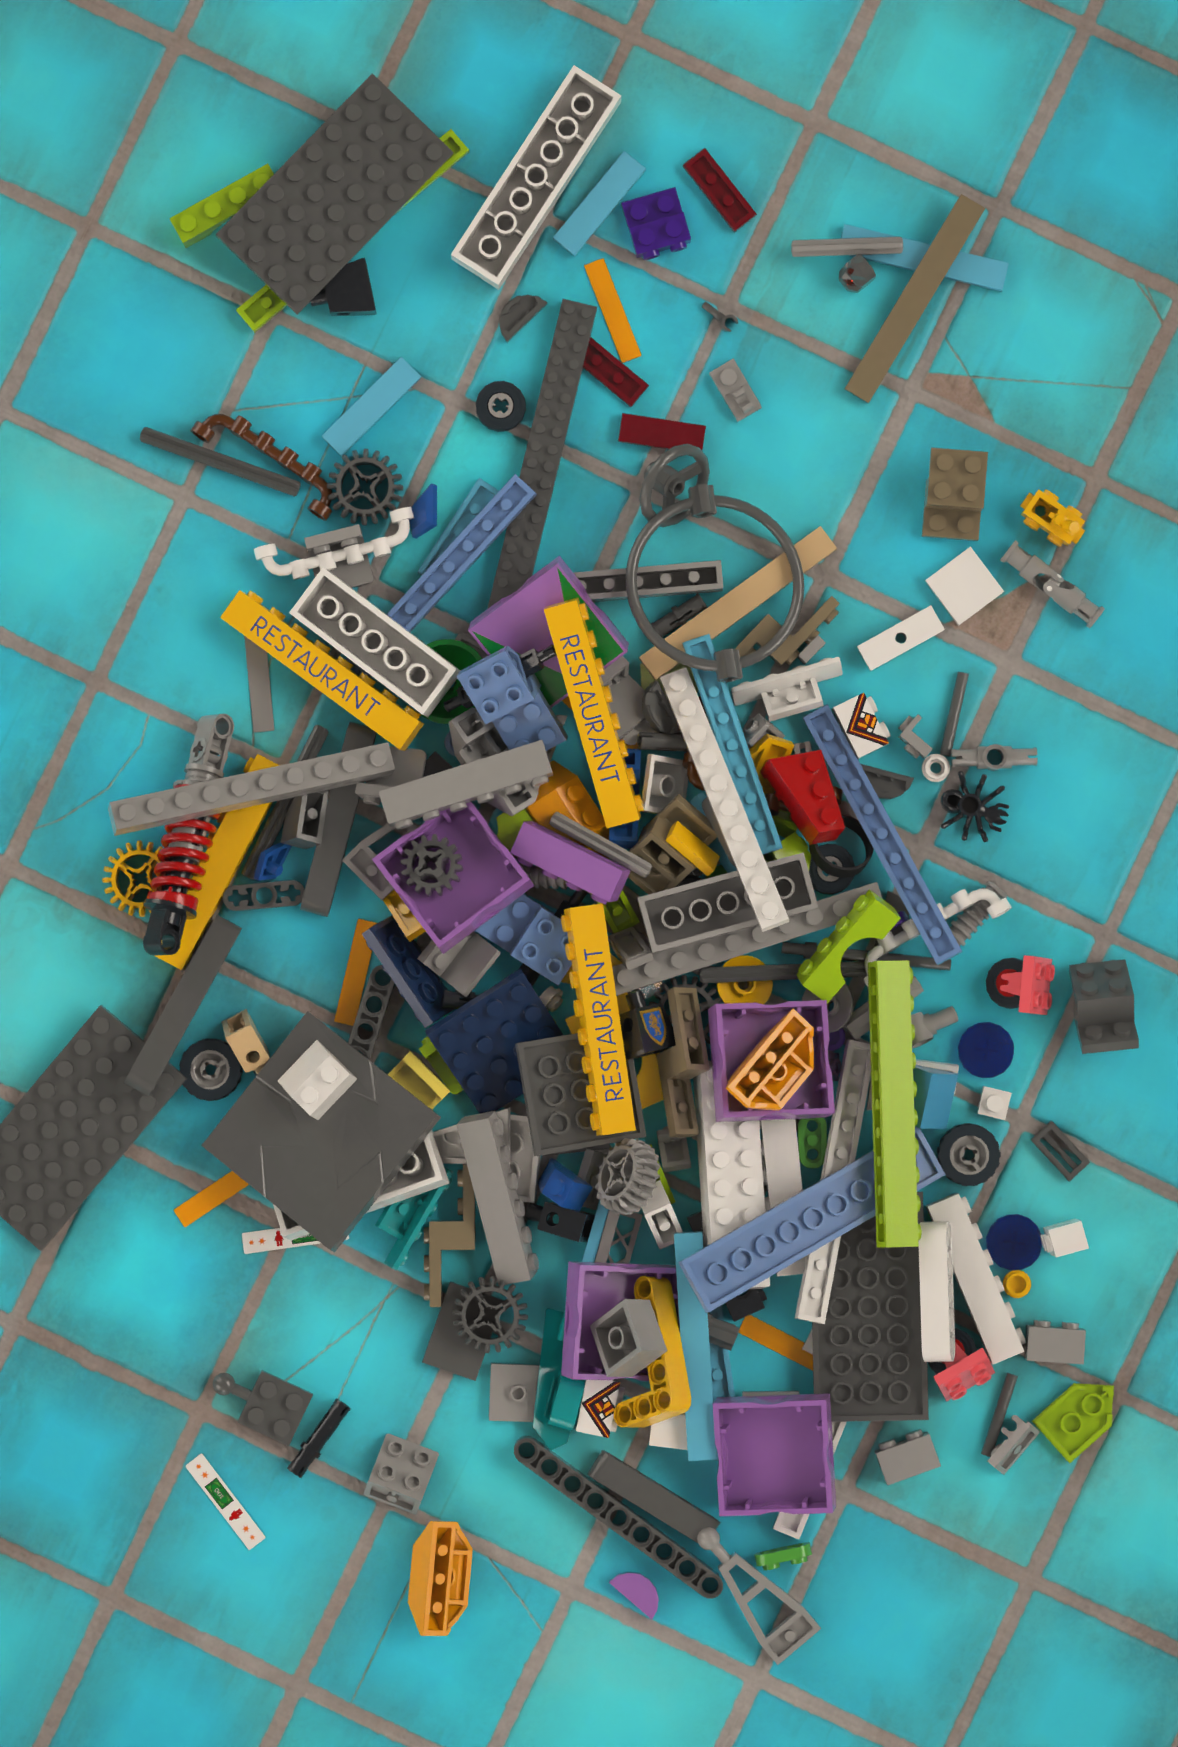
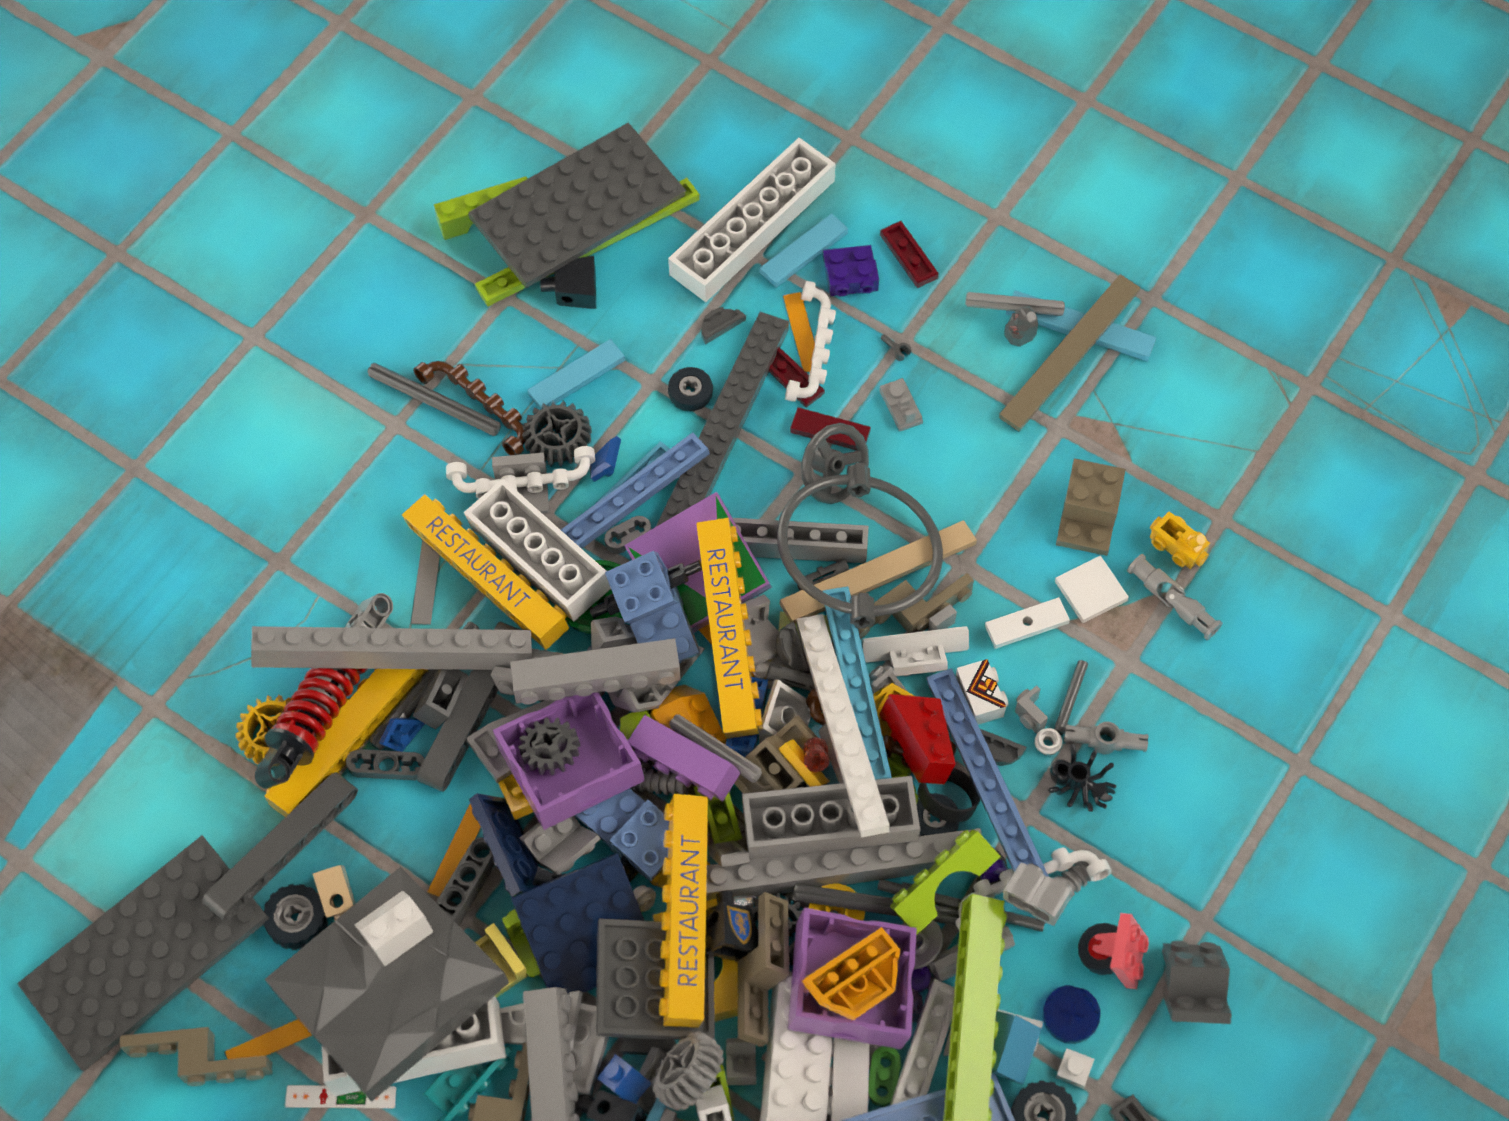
camera: 10 degrees right, 25 degrees down
(150, 1223) = (196, 1056): none -> dark tan bracket
(458, 591) = (625, 532): none -> light grey beam
(637, 343) = (822, 337): none -> white bar
(703, 834) = (812, 747): none -> clear red bush
(927, 1024) = (1015, 979): light grey pin -> none
(941, 953) = (1037, 893): none -> light grey brick

